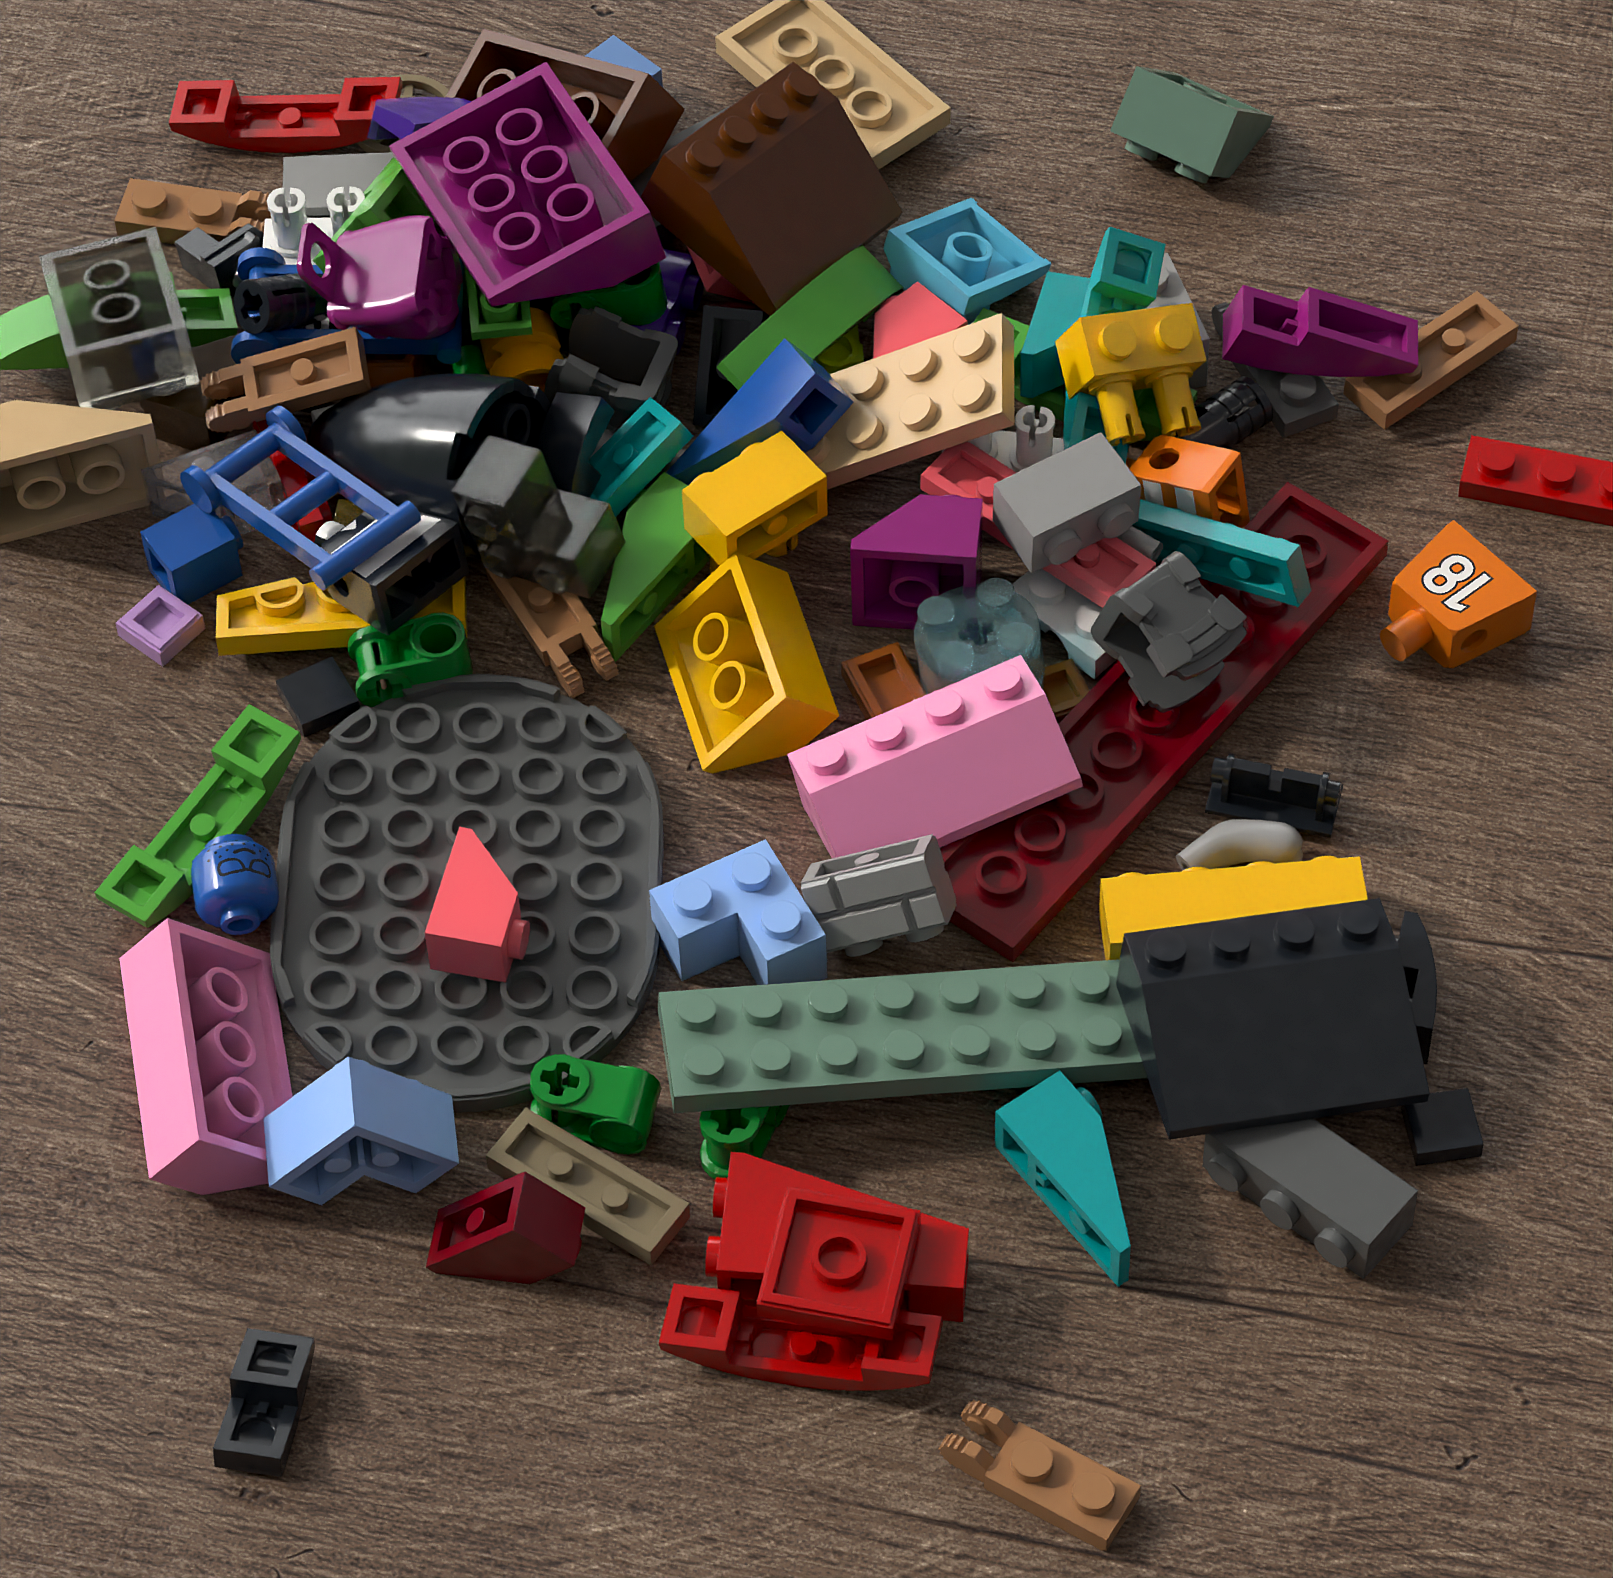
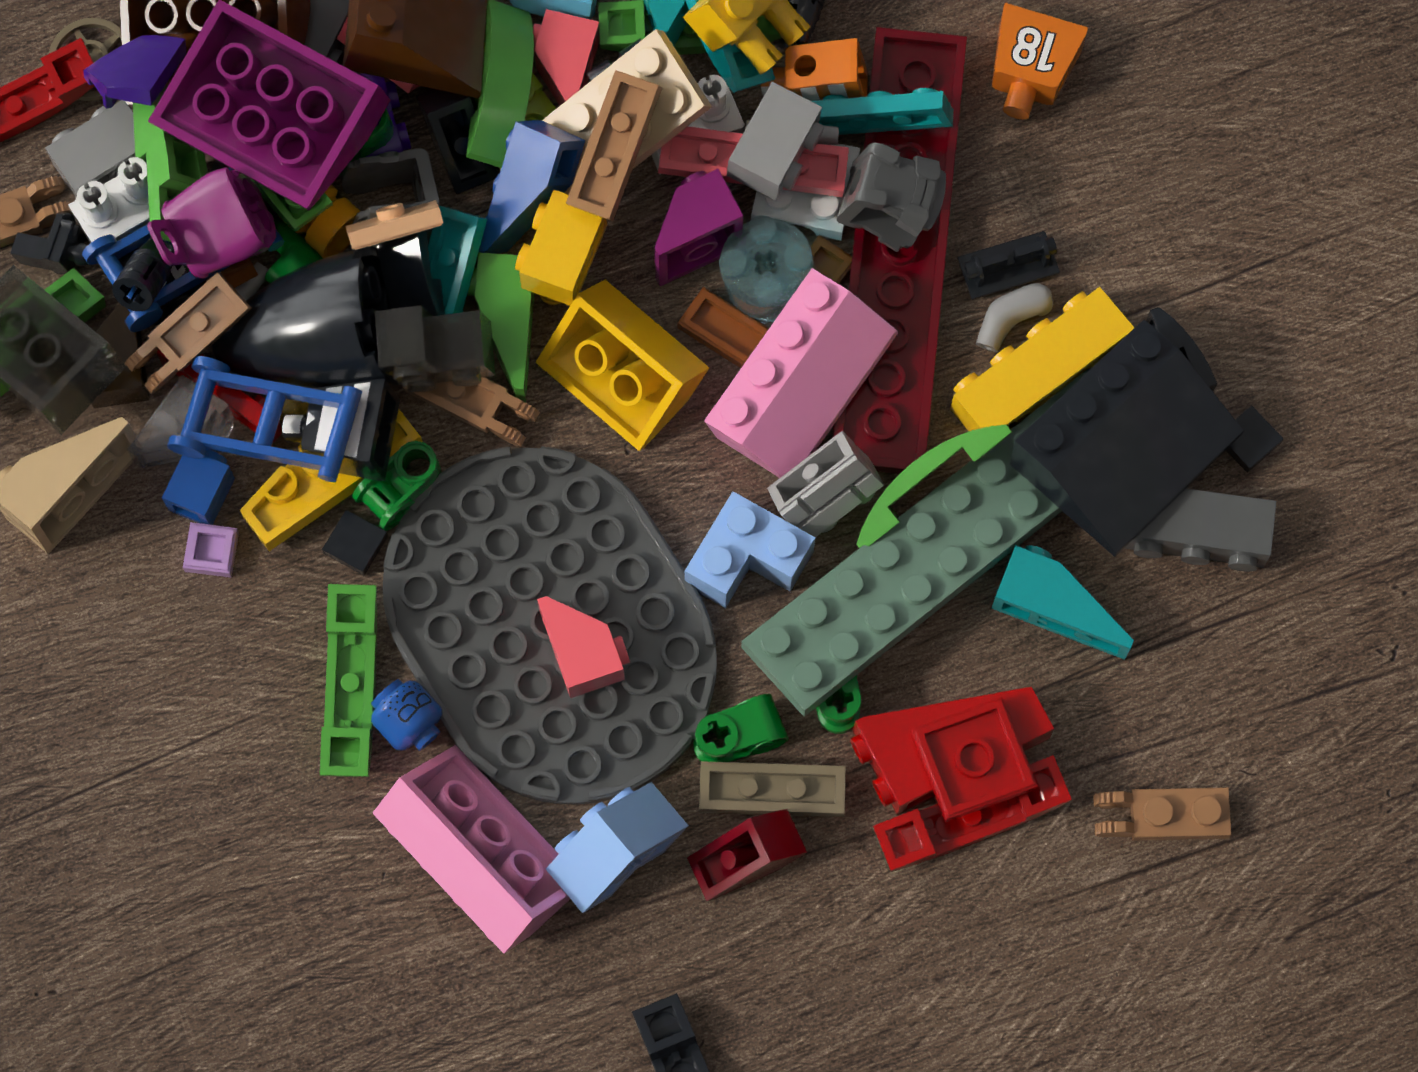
camera: 35 degrees left, 20 degrees up
(584, 377) = (393, 223): none -> light nougat plate
(873, 406) = (614, 145): none -> medium nougat plate
(1007, 930) = (883, 516): none -> bright green slope

